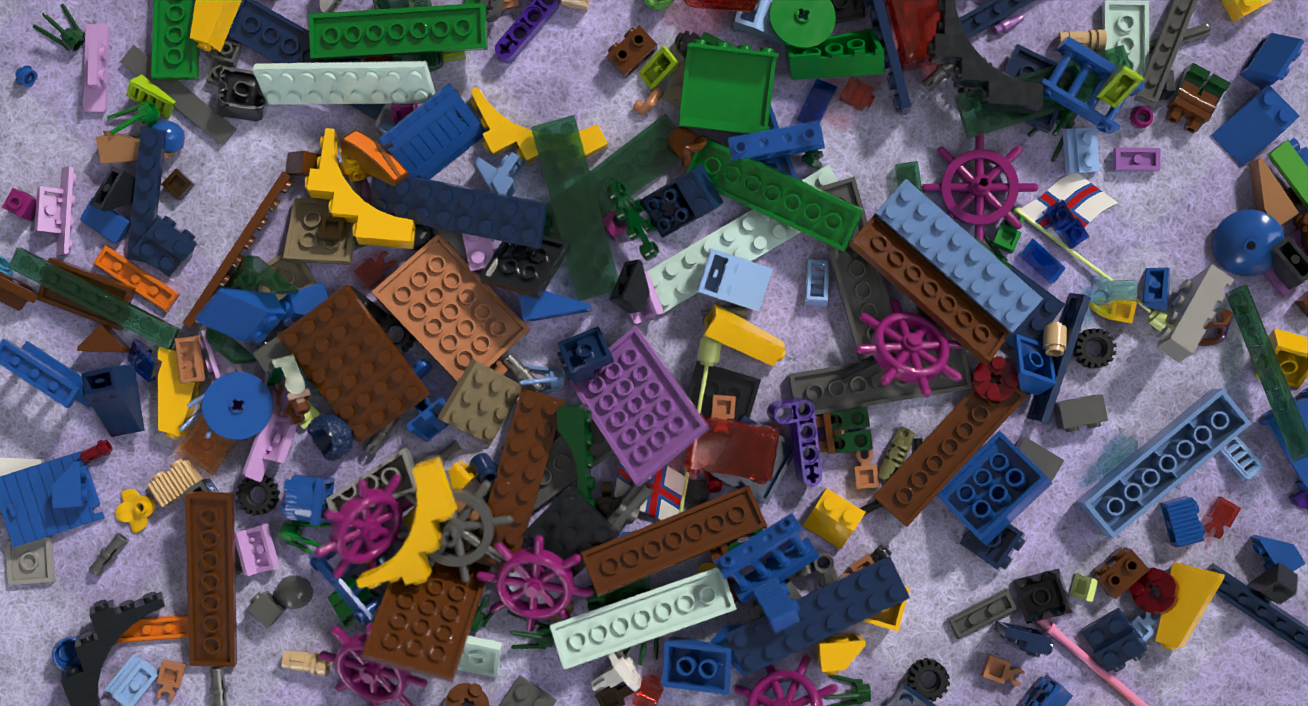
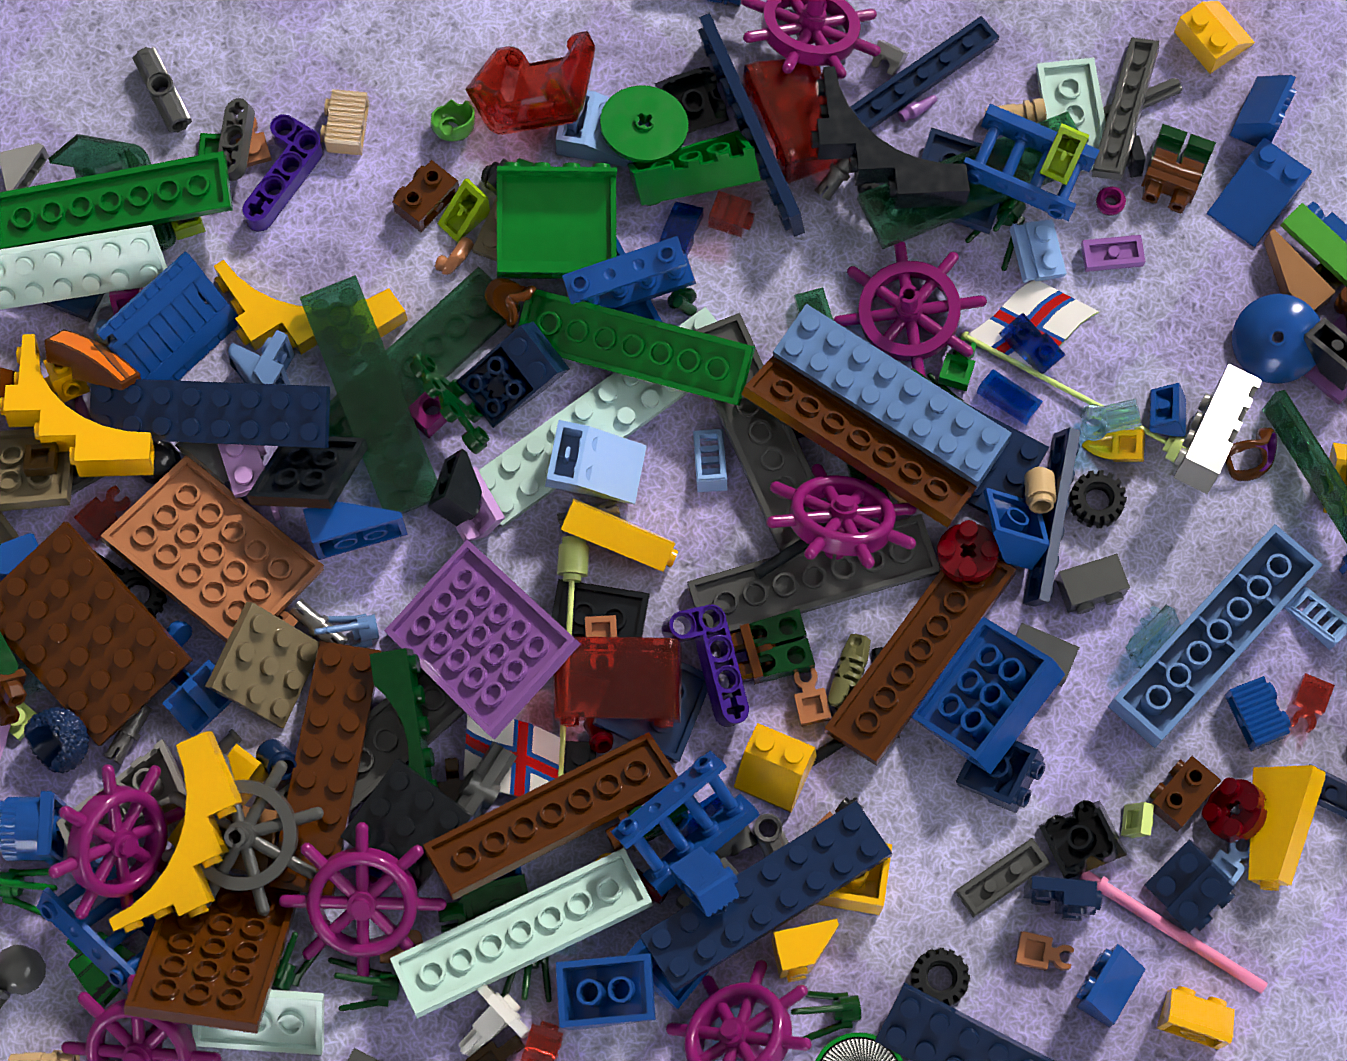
camera: 10 degrees left, 15 degrees down
(584, 354) = (399, 585): dark blue plate -> none

